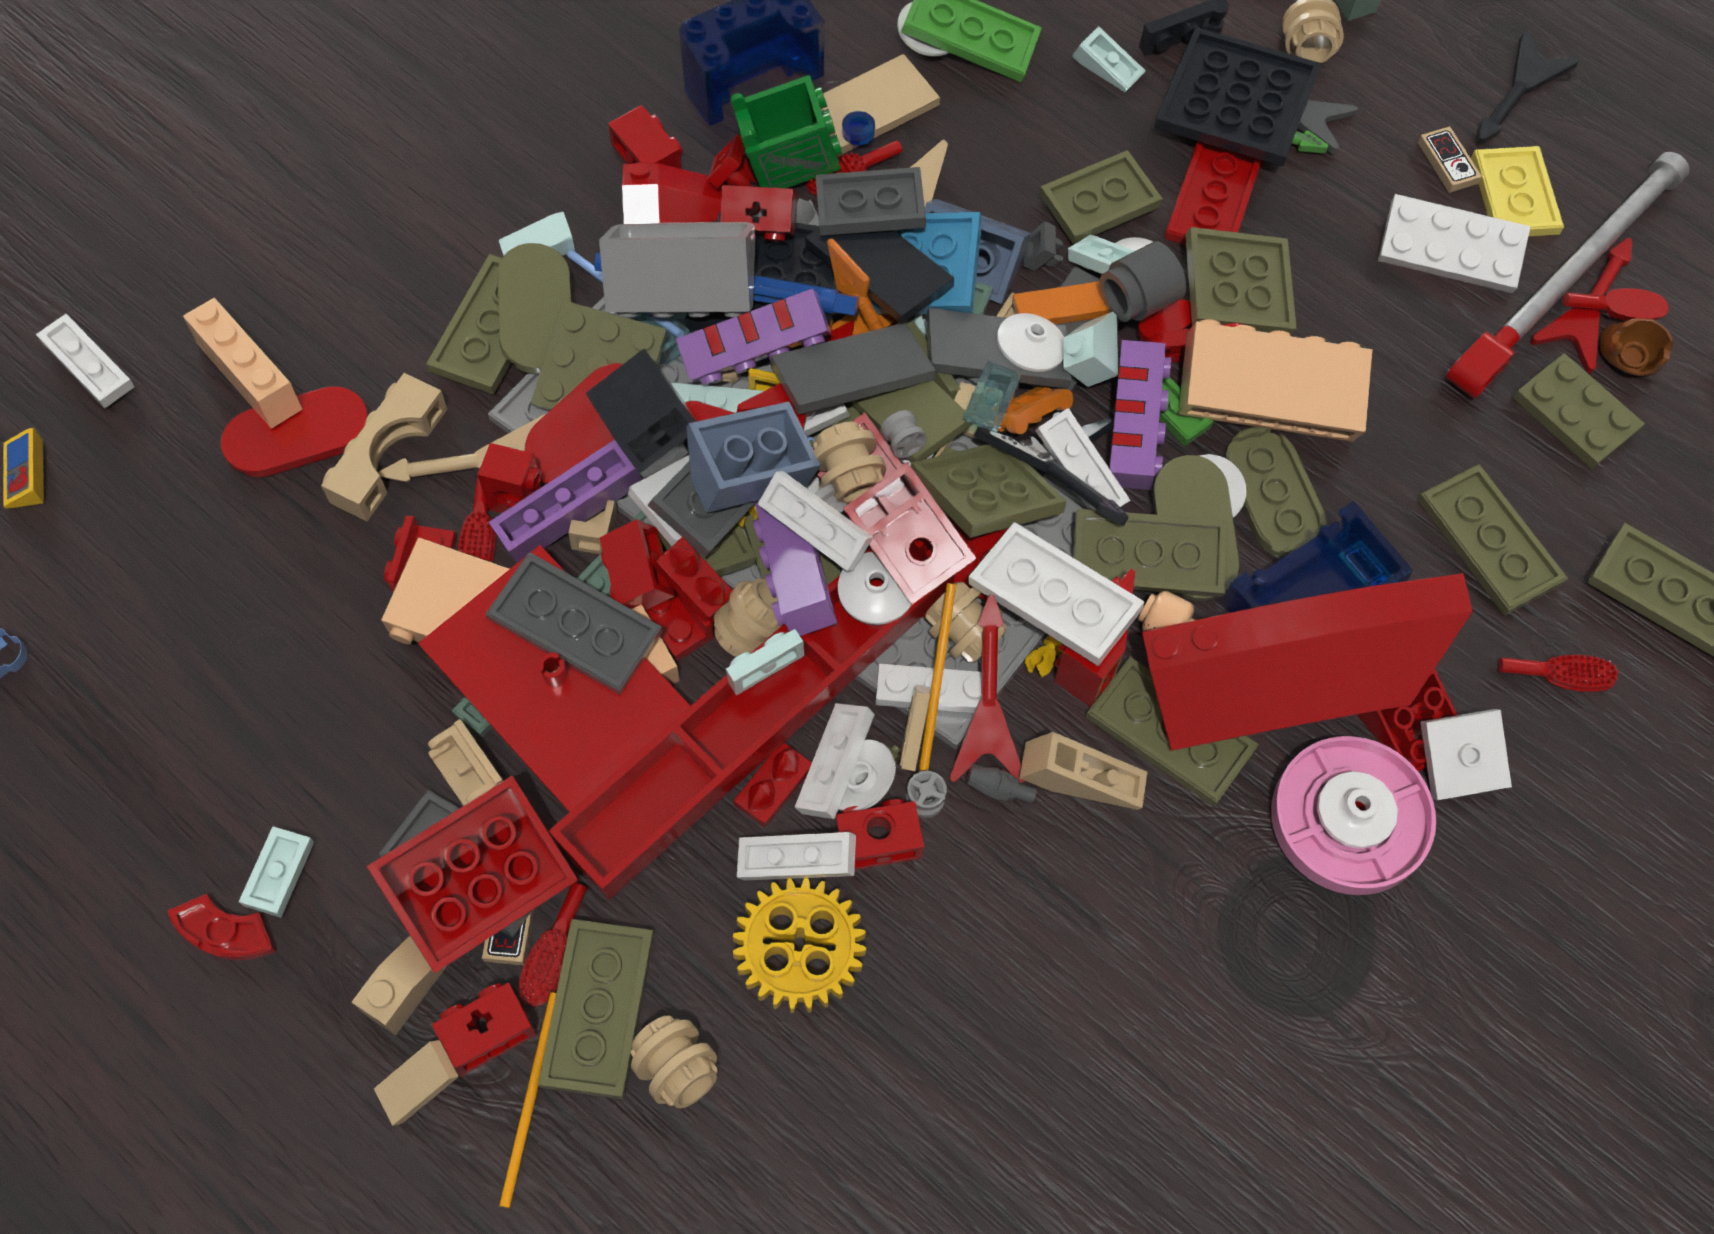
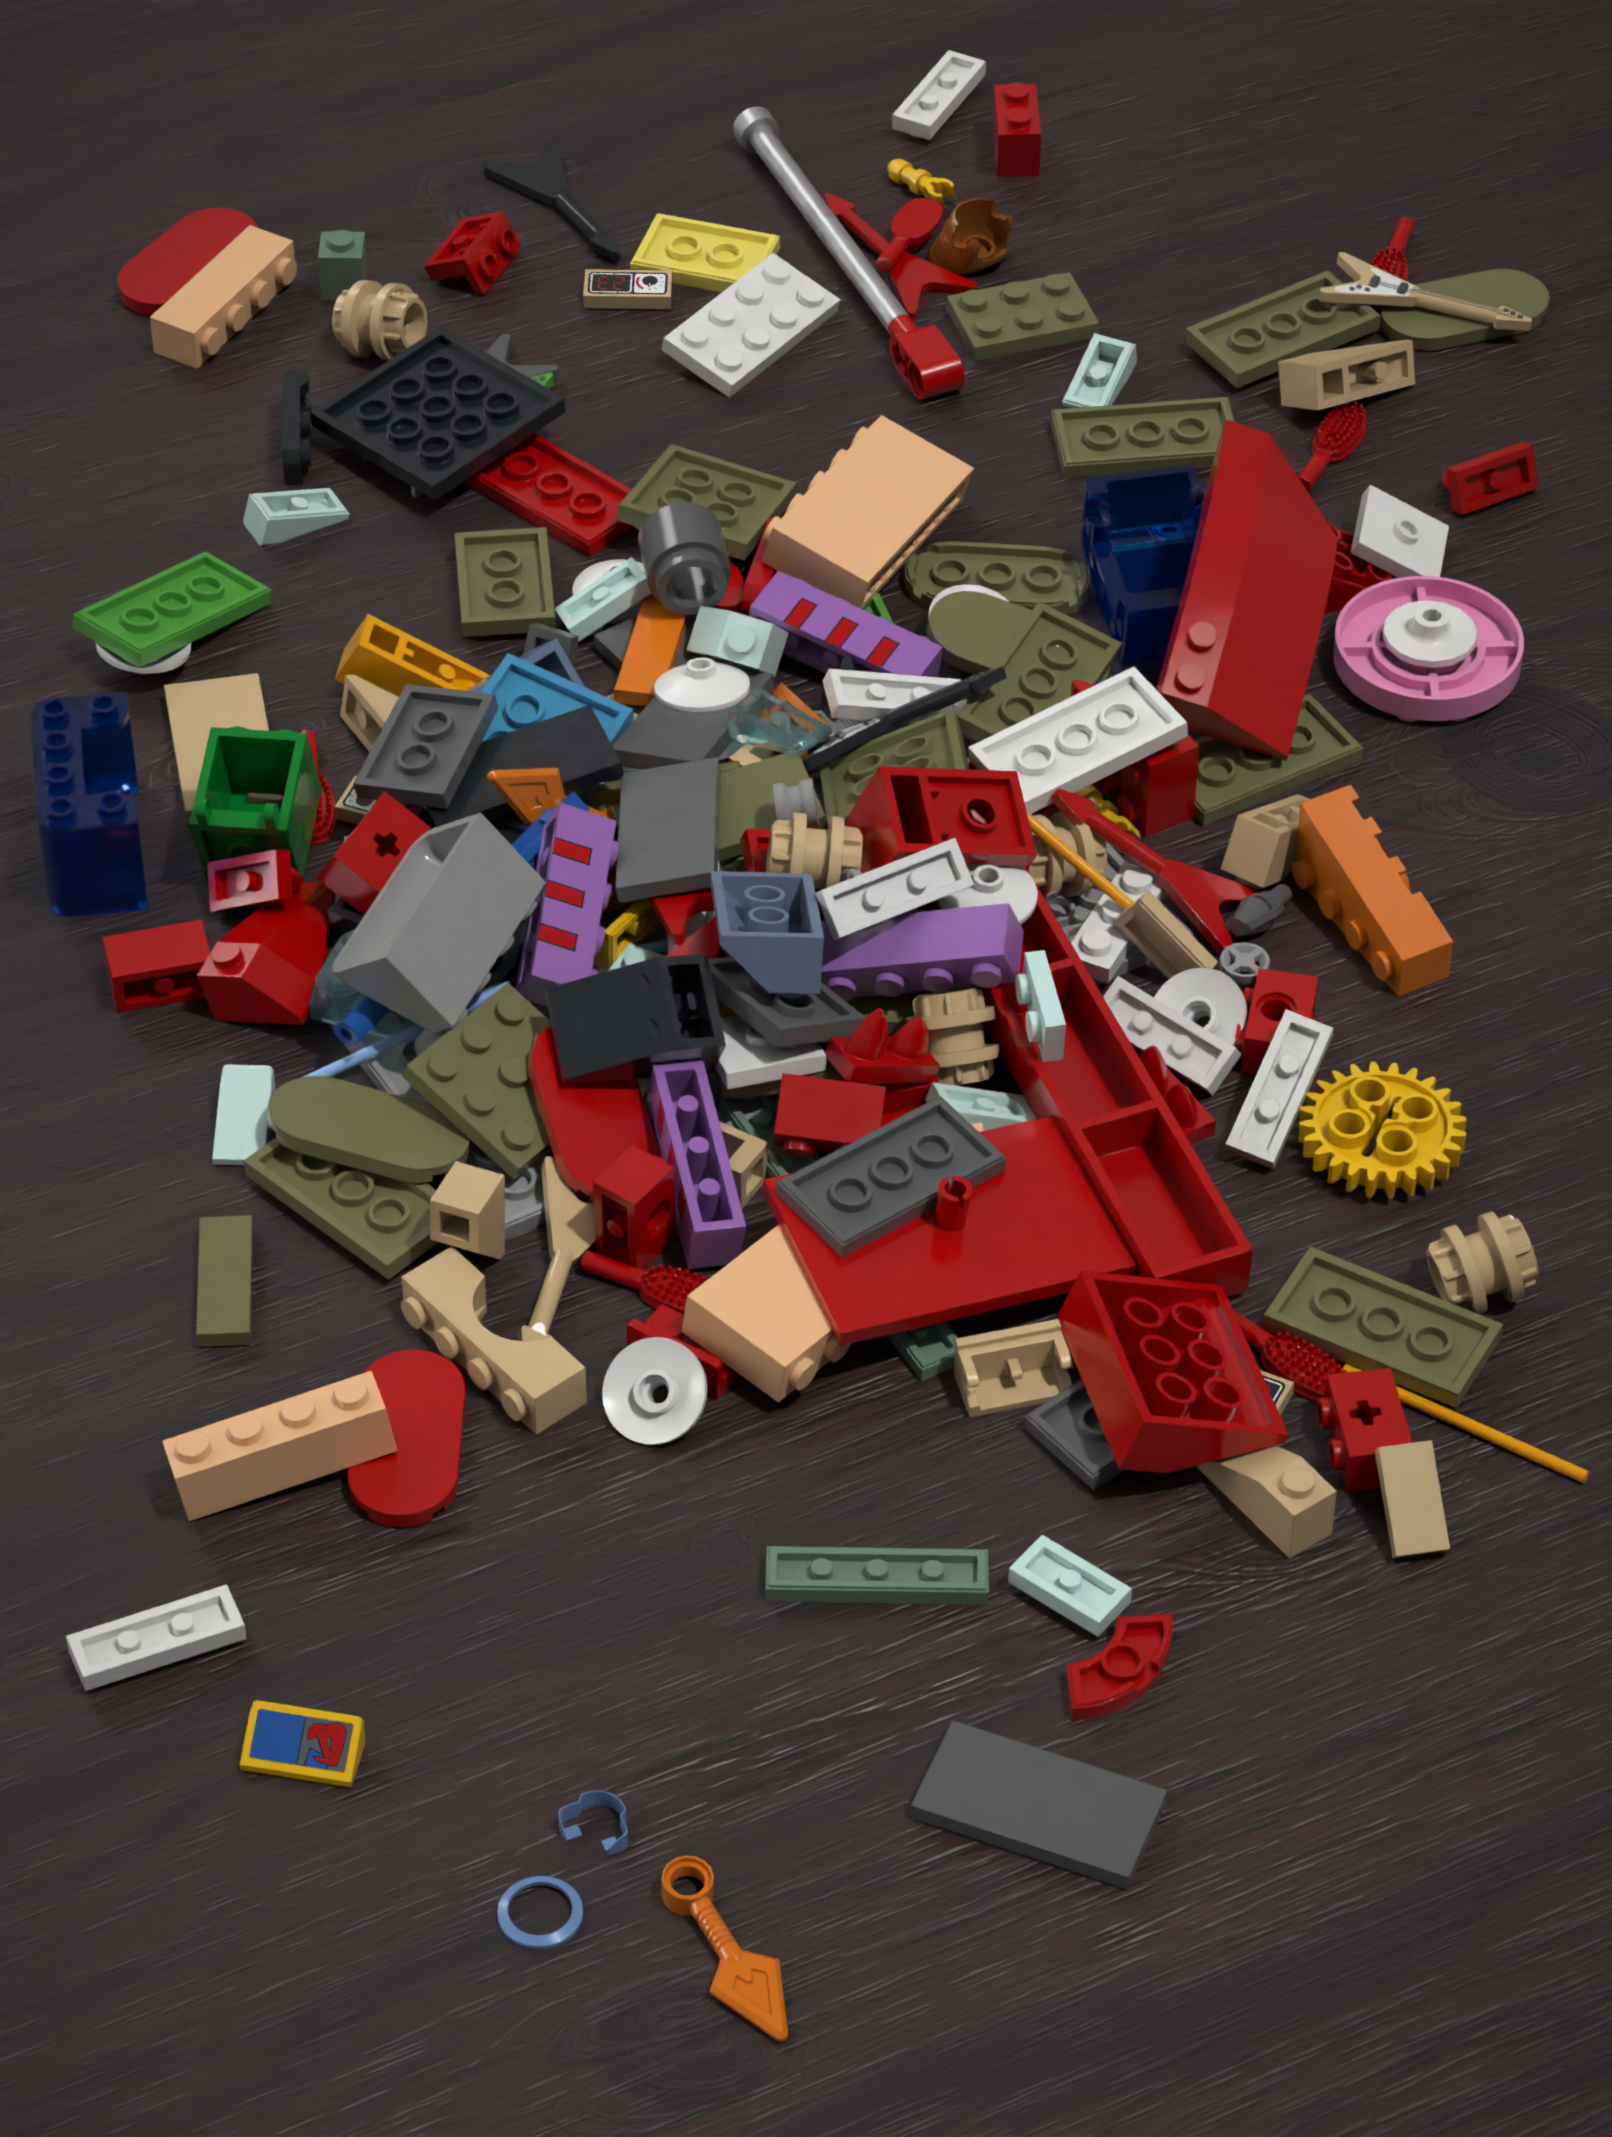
camera: 65 degrees left, 20 degrees down
(80, 919) = (1039, 1804): none -> dark grey tile
(260, 748) = (877, 1575): none -> sand green tile
(366, 554) = (631, 1386): none -> white dish
(396, 285) = (225, 1281): none -> olive tile
(461, 389) = (470, 1210): none -> tan slope
(697, 658) = (984, 1106): none -> light aqua plate
(979, 172) = (396, 659): none -> light orange slope
(1038, 857) = (1368, 893): none -> orange wedge
(1427, 59) = (477, 250): none -> red bracket
(1541, 484) = (1101, 373): none -> light aqua slope
(1583, 801) = (1491, 478): none -> red tile
(1640, 654) = (1345, 374): none -> tan slope
(1686, 292) = (920, 181): none -> yellow piece

